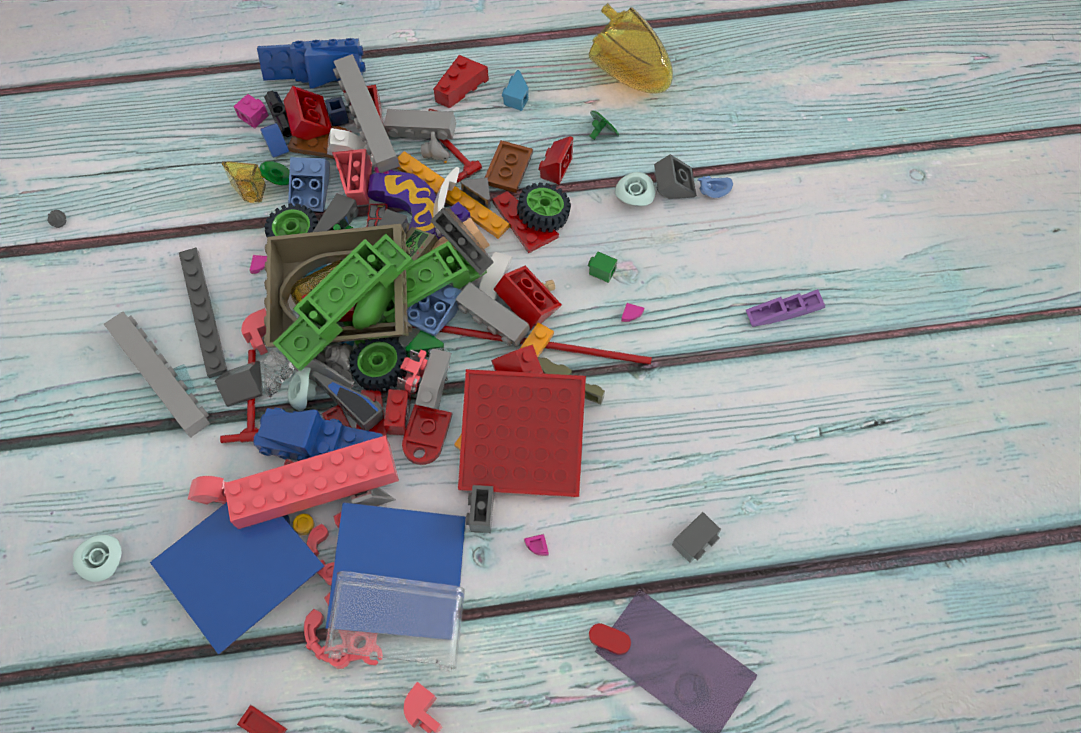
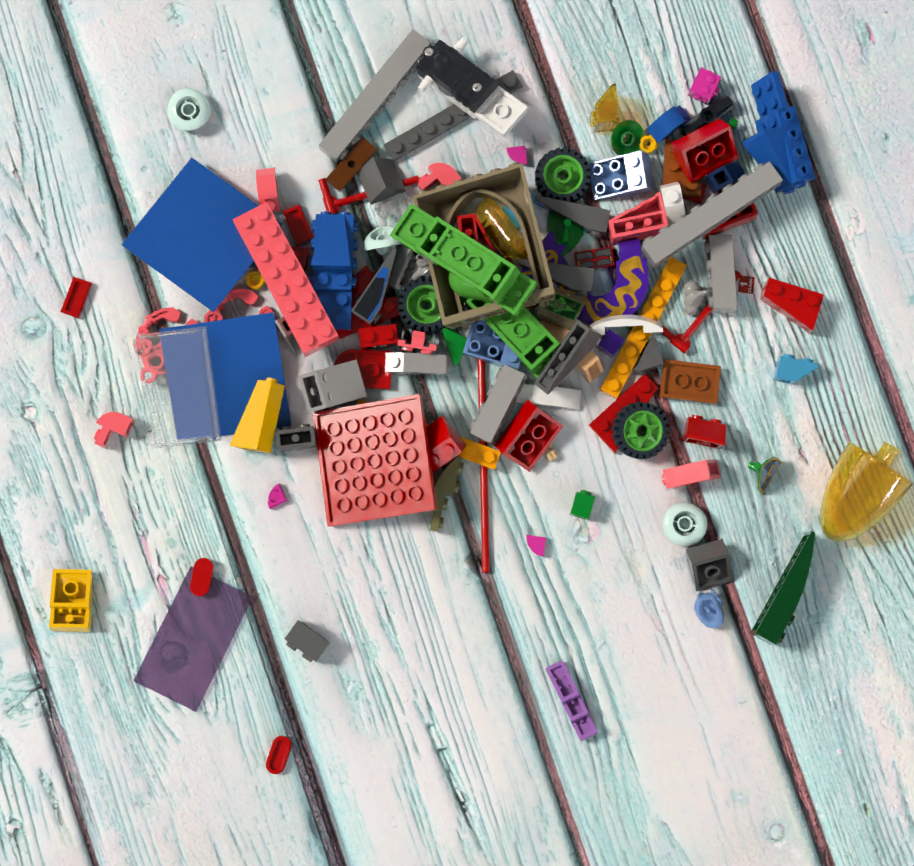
camera: 75 degrees right, 20 degrees up
(176, 283) = (468, 86): none -> piece
(210, 401) = (359, 156): none -> reddish brown tile
(258, 466) = (298, 225): none -> red tile
(285, 156) = (644, 147): none -> yellow plate
(435, 462) = (332, 386): none -> light grey slope
(451, 539) = (260, 417): none -> yellow slope
(591, 176) = (691, 473): none -> coral slope
(709, 123) = (786, 594): none -> dark green slope
(813, 593) = (278, 754): none -> red tile

